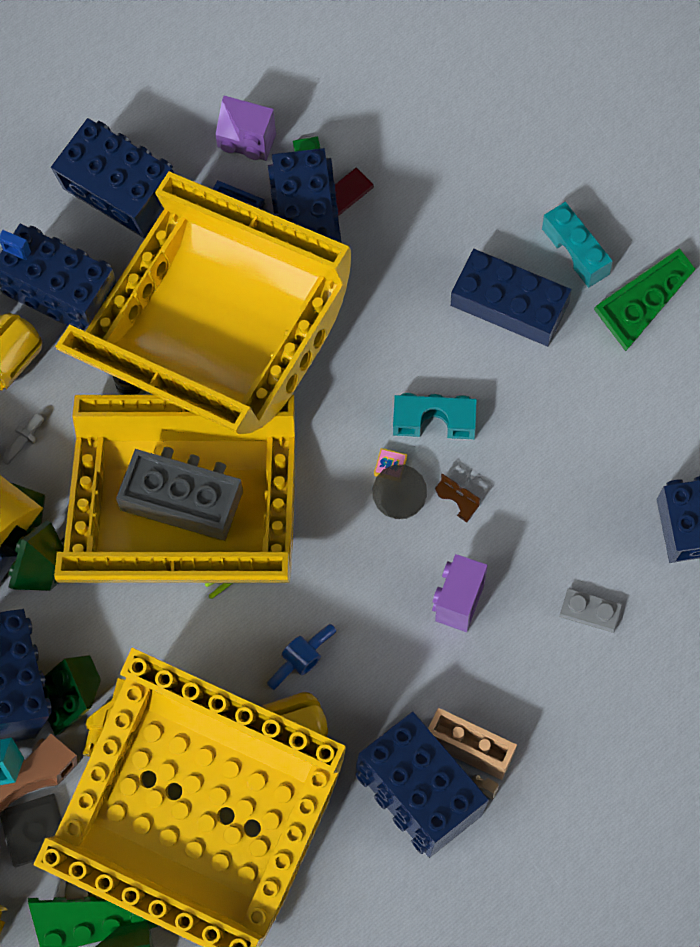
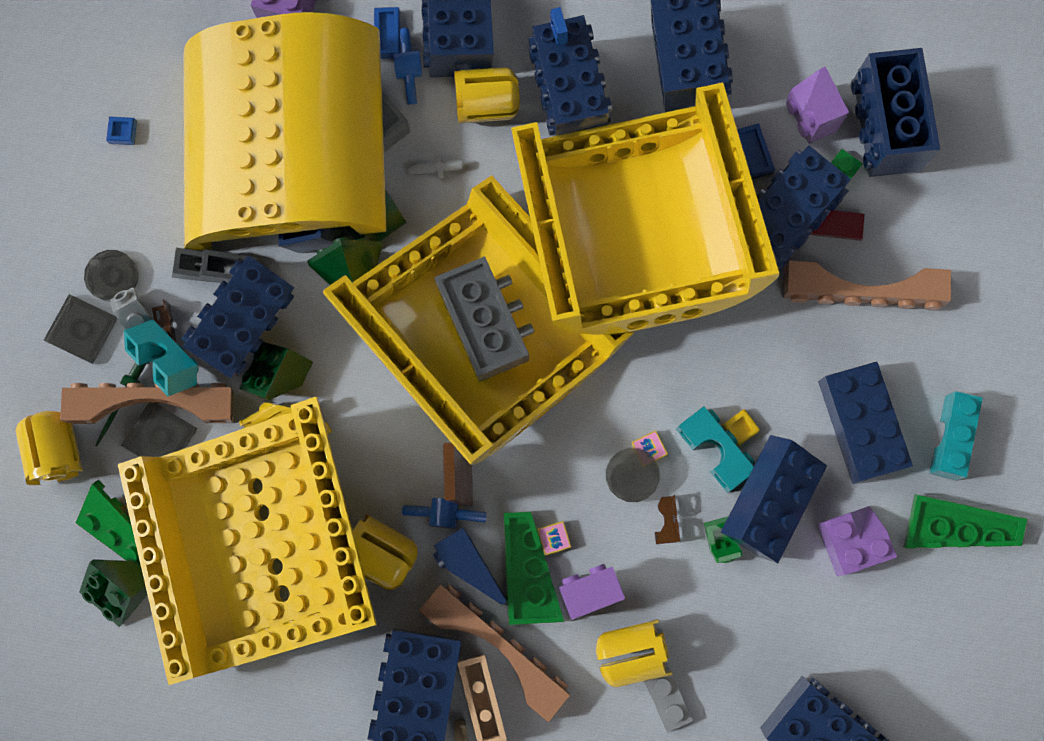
camera: 50 degrees right, 10 degrees up
(283, 612) = (457, 477): none -> reddish brown tile
(303, 80) = (895, 112): none -> dark blue brick
(359, 665) = (463, 560): none -> dark blue slope
(373, 244) = (812, 282): none -> nougat arch
(395, 591) = (554, 538): none -> tile
(413, 638) = (528, 577): none -> green wing
(435, 384) = (741, 427): none -> yellow tile
(499, 695) = (540, 690): none -> nougat arch
(506, 469) = (720, 546): none -> green bracket
(508, 404) = (774, 498): none -> dark blue brick
(546, 607) = (634, 668): none -> yellow cylinder
(591, 377) = (856, 541): none -> medium lavender slope

